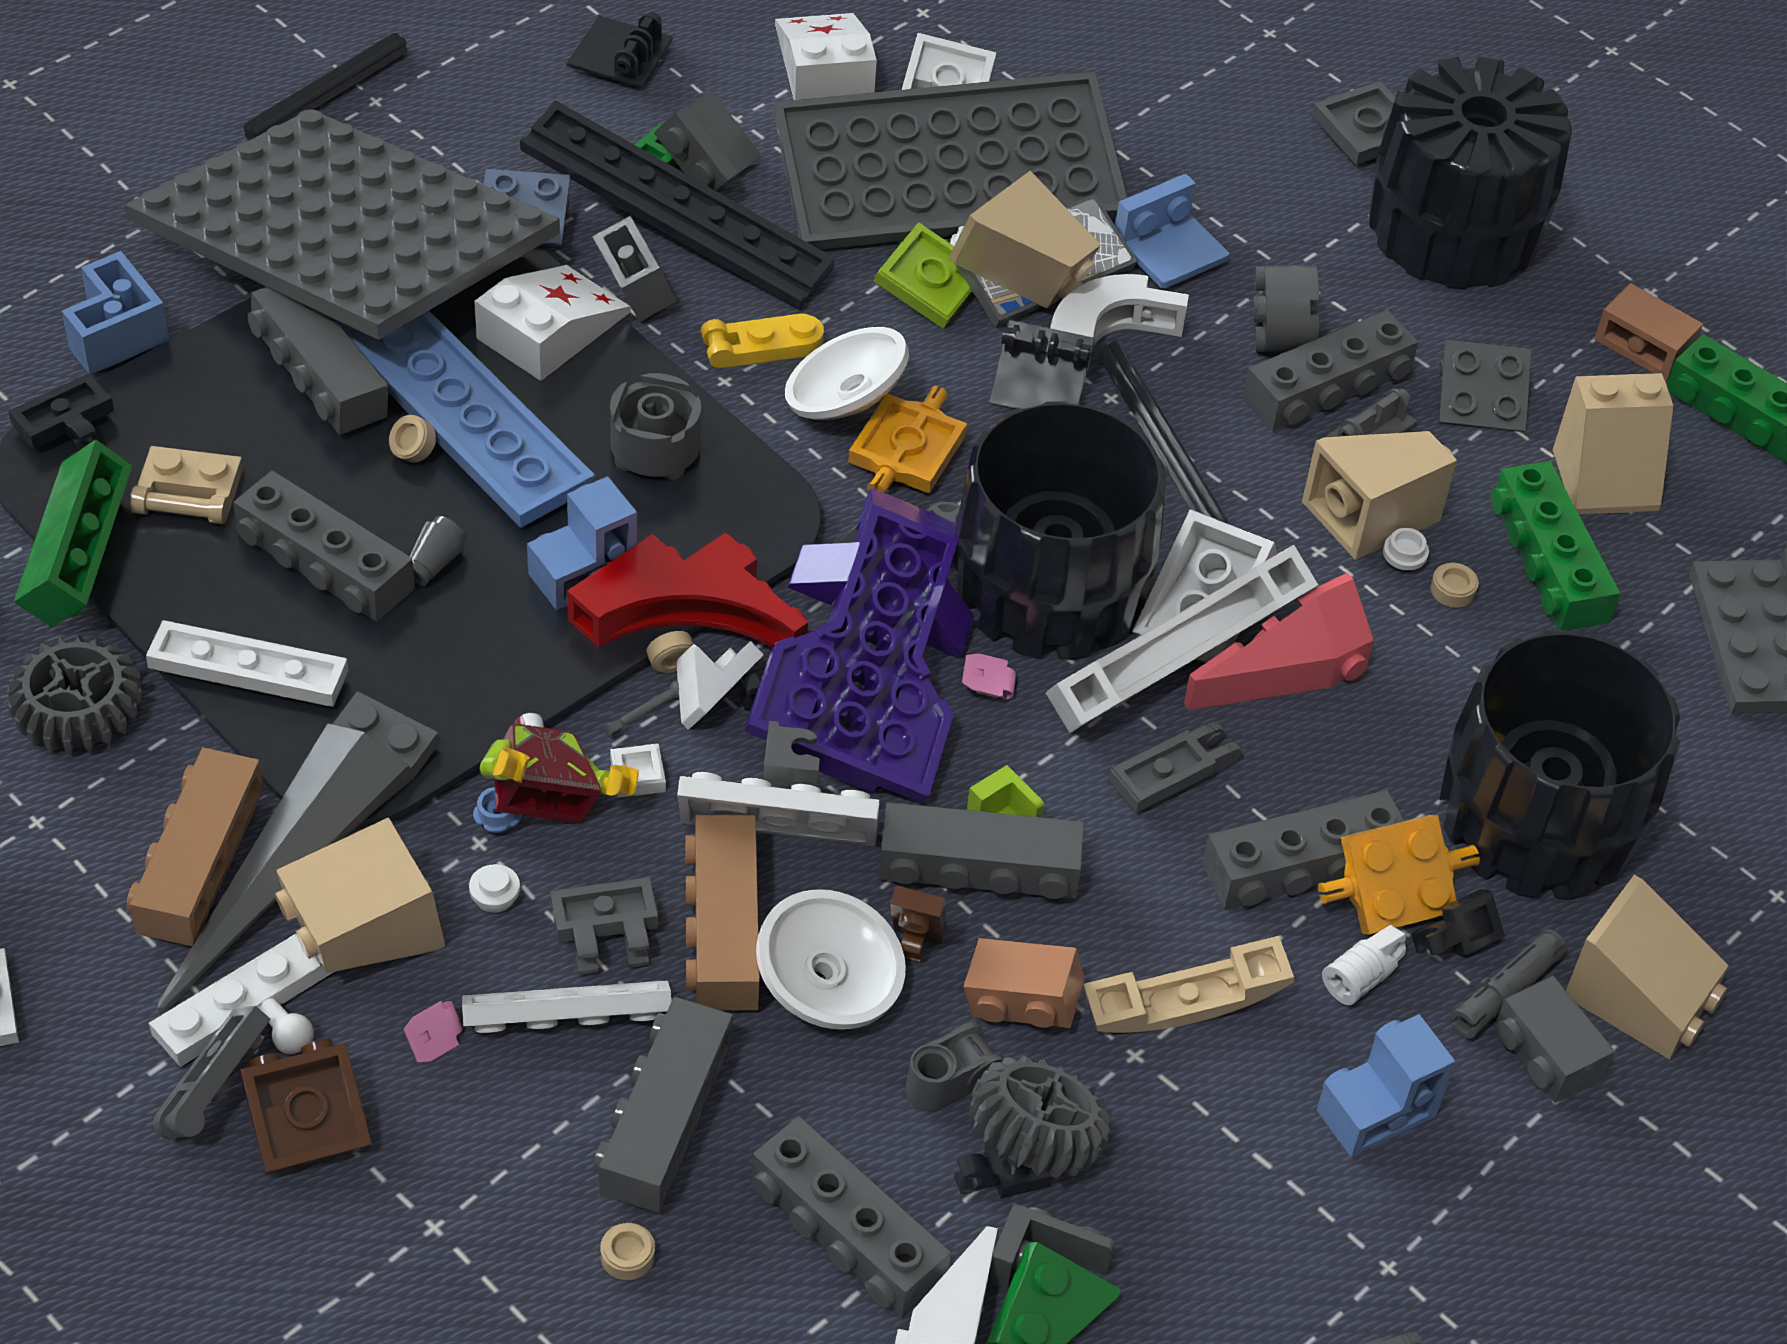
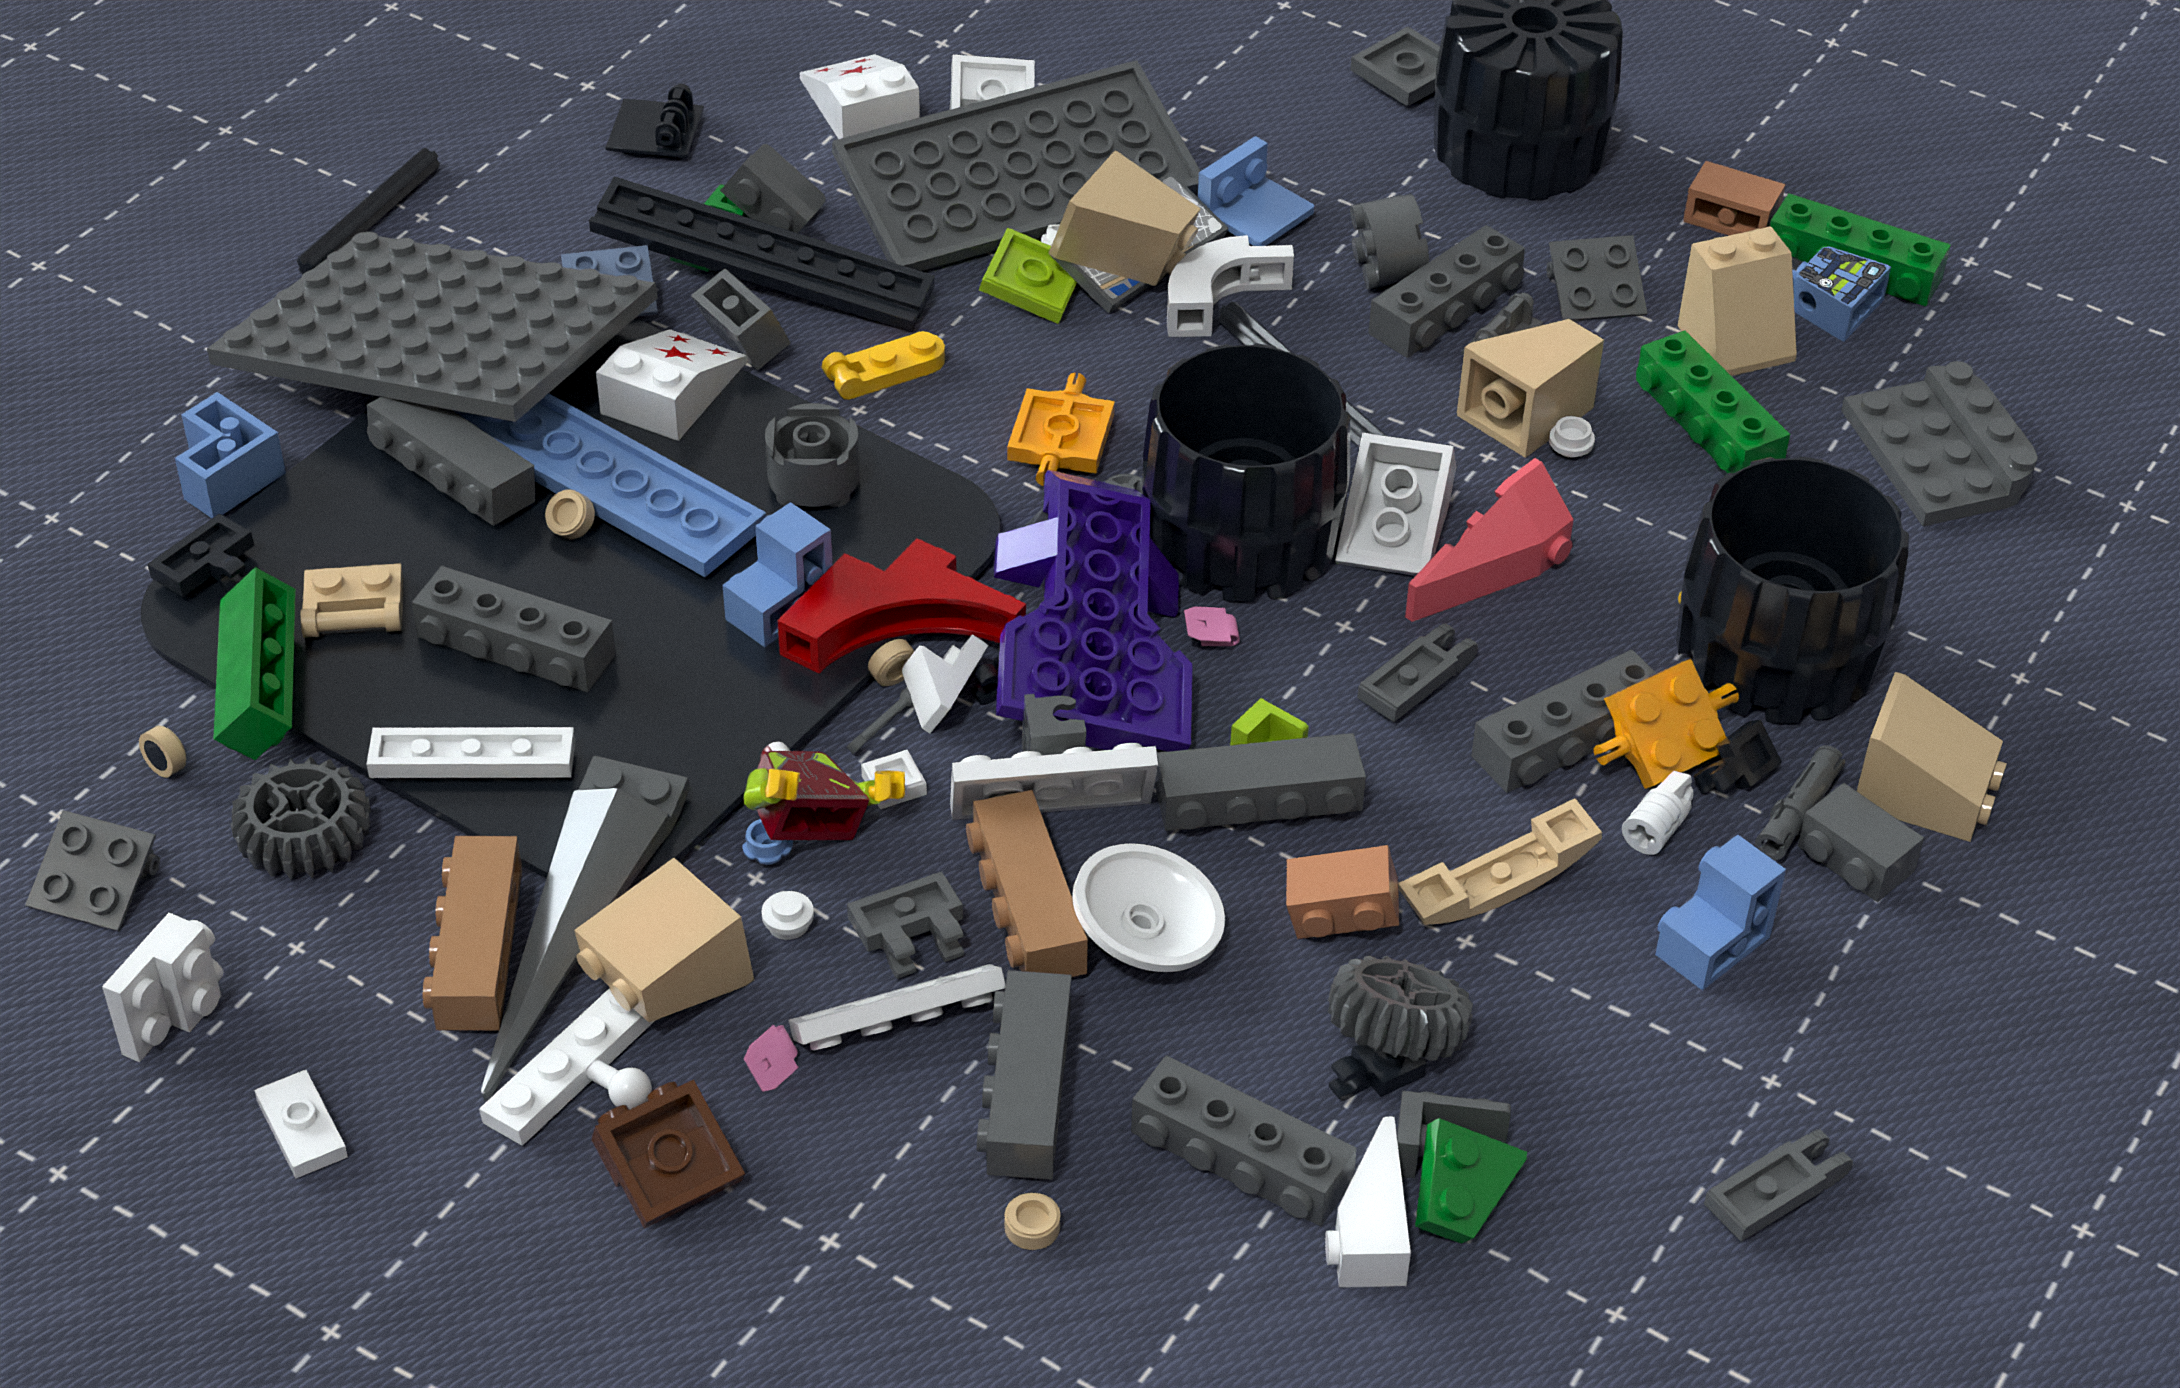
camera: 10 degrees left, 5 degrees down
(210, 1073) = (561, 1140): dark grey plate -> none
(435, 548) = (628, 608): dark grey cone -> none
(847, 374) = (984, 376): white dish -> none
(919, 918) = (1222, 852): reddish brown plate -> none
(956, 1064) = (1293, 987): dark grey piece -> none
(1040, 366) = (1165, 332): black hinge -> none
(1181, 639) = (1391, 551): white arch -> none
(1454, 585) = (1627, 461): tan tile -> none
(1721, 444) = (1838, 290): none -> medium blue torso

